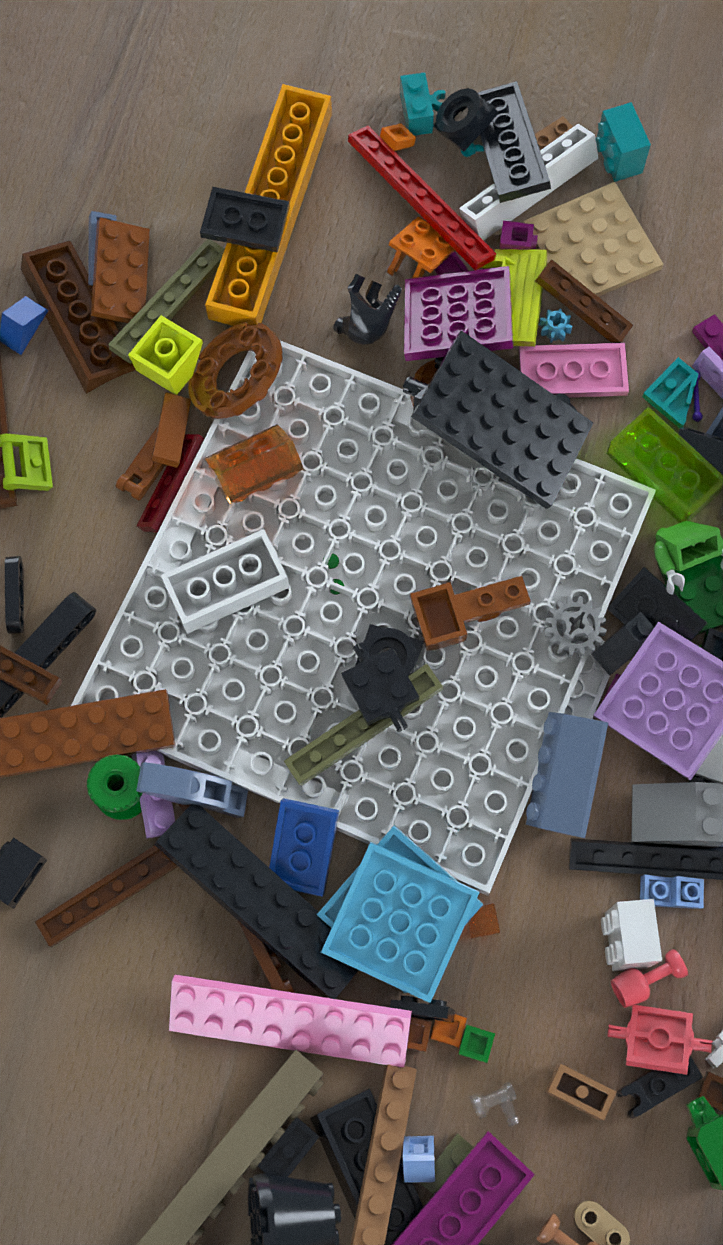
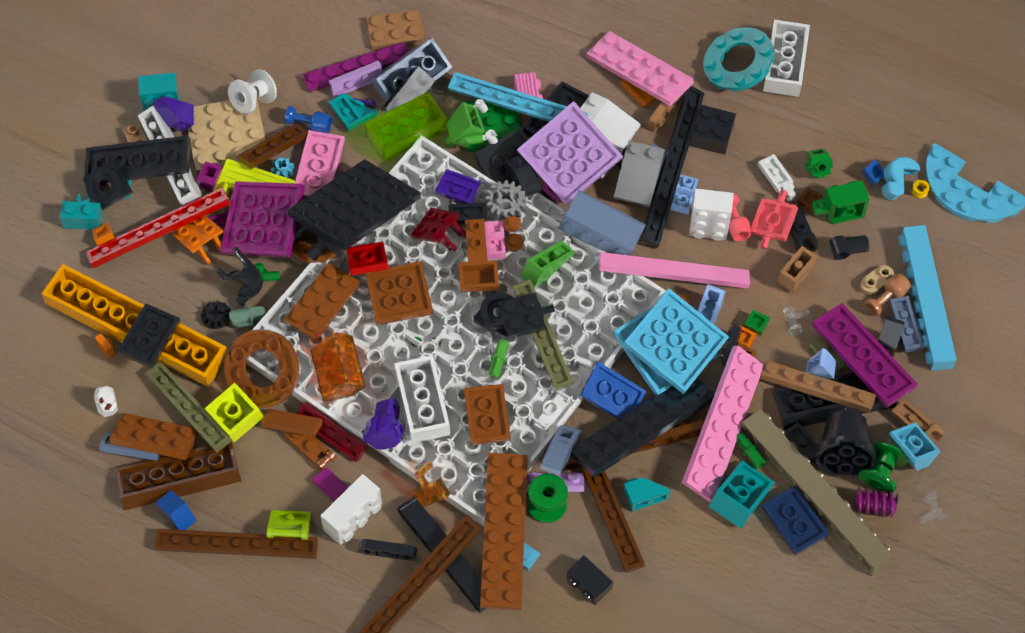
camera: 80 degrees left, 10 degrees down
(39, 781) = (530, 556): none -> medium azure plate
(54, 533) = (351, 510): none -> white brick
(95, 506) = (329, 484): none -> magenta tile
(98, 626) = (430, 491): none -> clear orange plate
(157, 204) = (105, 401): none -> white rock
(159, 923) = (644, 493): none -> teal slope
(159, 1160) = (795, 520): none -> dark blue plate
(172, 541) = (383, 429): none -> dark purple piece
(186, 1071) = (741, 494): none -> teal slope
(225, 675) = (487, 414): none -> dark orange plate
(237, 179) = (105, 345): none -> orange plate
(259, 1070) = (750, 451): none -> green axle
(308, 310) = (221, 320): none -> black gear
(315, 672) = (498, 358): none -> bright green axle
(316, 335) = (246, 316): none -> sand green arm
(353, 421) = (322, 302): none -> dark orange plate
(388, 516) = (399, 293): none -> dark orange plate
(389, 344) = (267, 276): none -> green arm
(428, 460) = (367, 258): none -> red plate
(485, 707) = (546, 263): none -> bright green slope
(485, 966) = (711, 302): none -> light blue slope
(505, 538) = (435, 224): none -> dark red plate
(509, 627) = (495, 240): none -> bright pink slope
(510, 654) = (514, 242): none -> reddish brown plate
(529, 901) = (674, 270): none -> bright pink tile
(537, 644) = (512, 224): none -> dark orange tile
(539, 579) = (469, 211): none -> black plate
(578, 556) = (457, 187): none -> dark purple plate
(596, 169) = (175, 113): none -> dark purple slope
(642, 352) = (318, 122): none -> blue piece
(644, 1163) = (844, 247): none -> black piece
(659, 251) = (244, 94): none -> white hose

